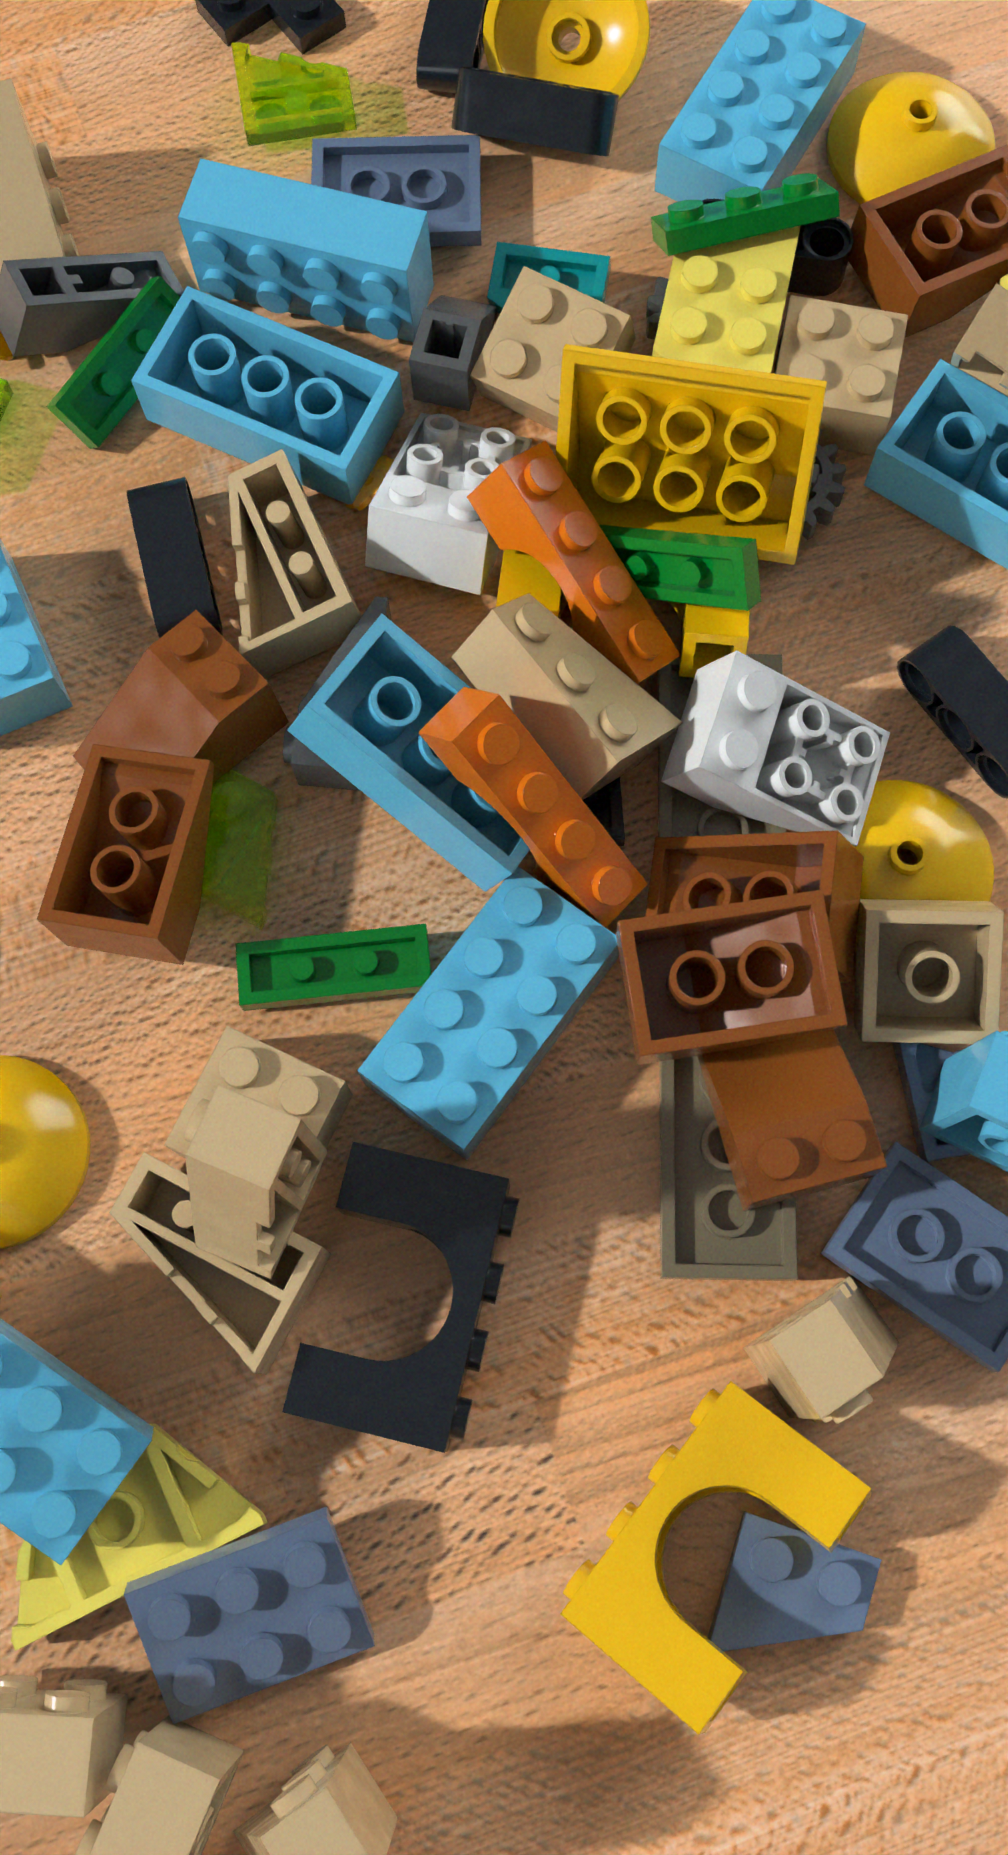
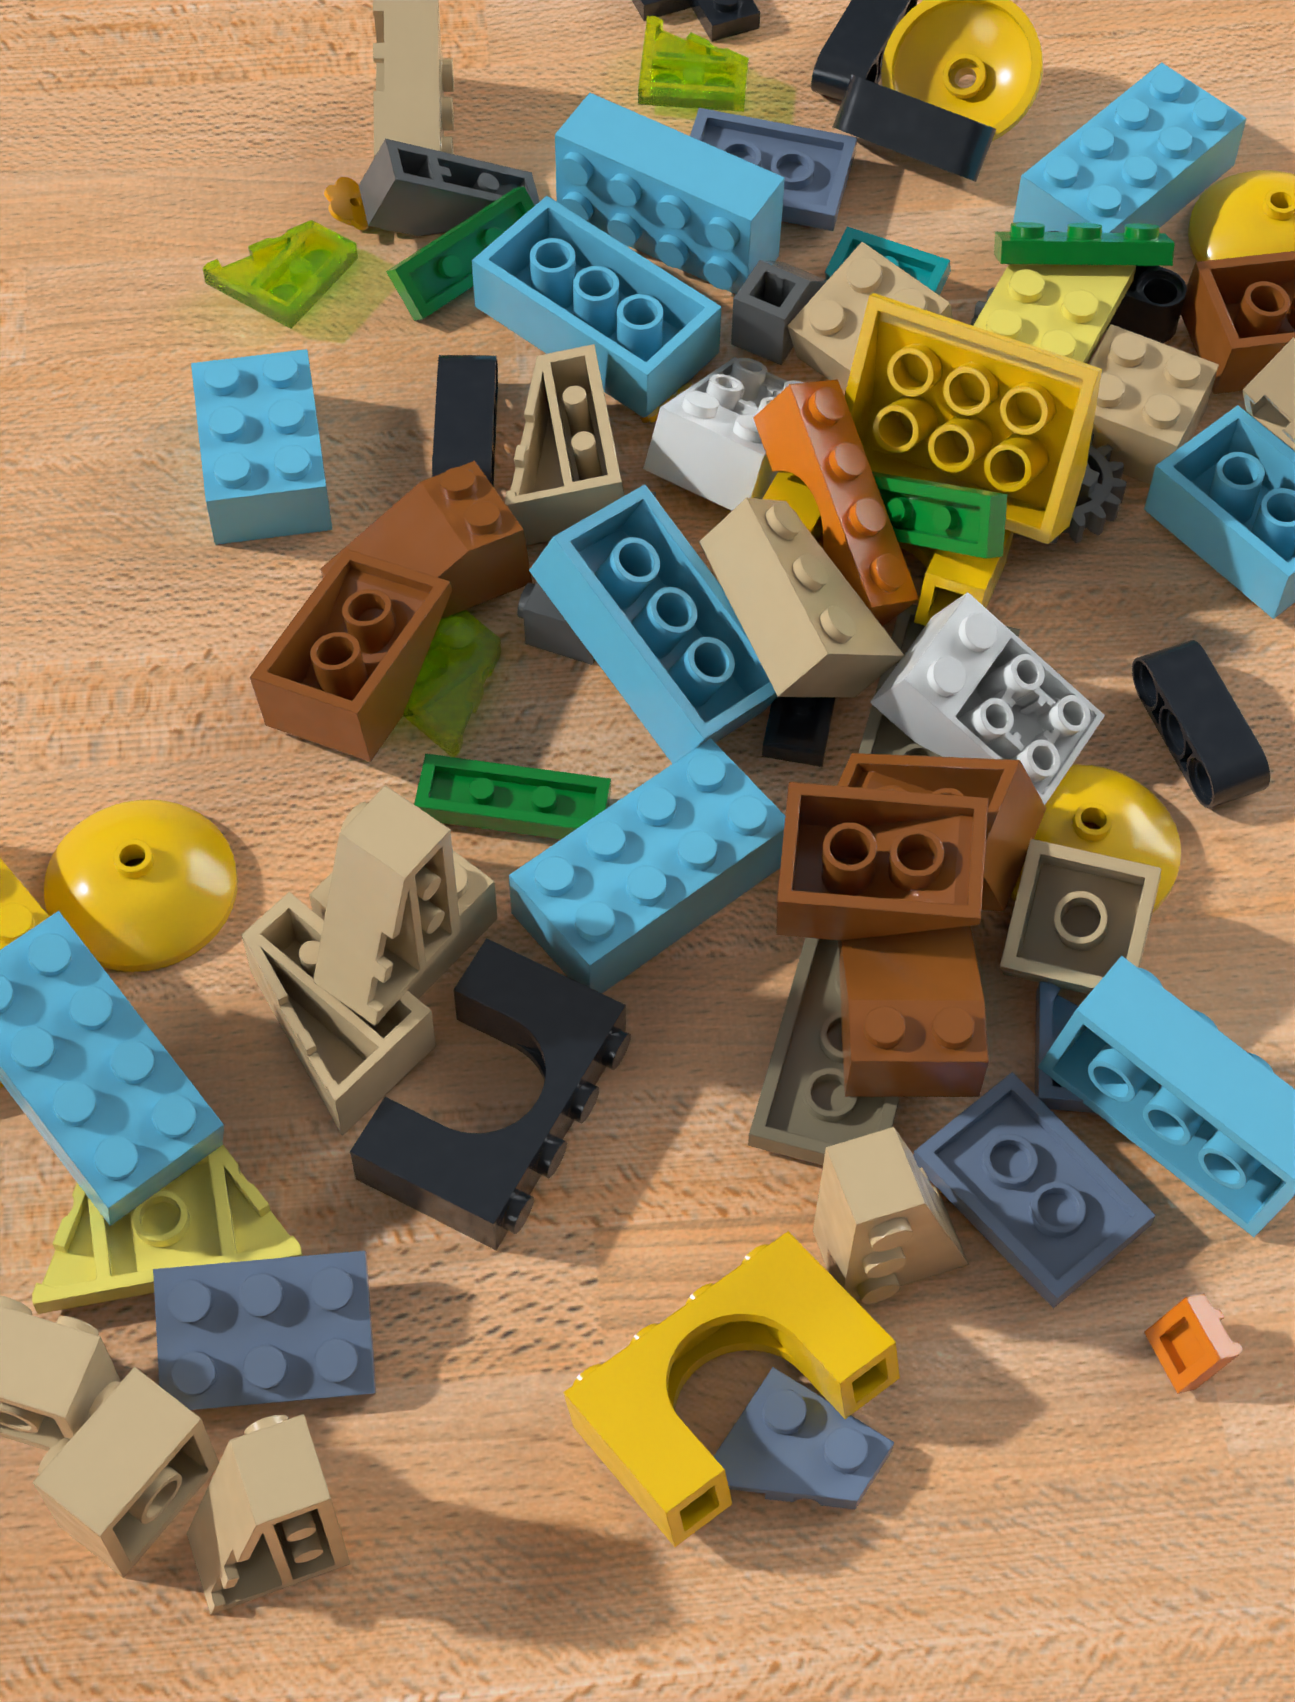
camera: 10 degrees right, 15 degrees down
(505, 765) = (722, 634): orange arch -> none

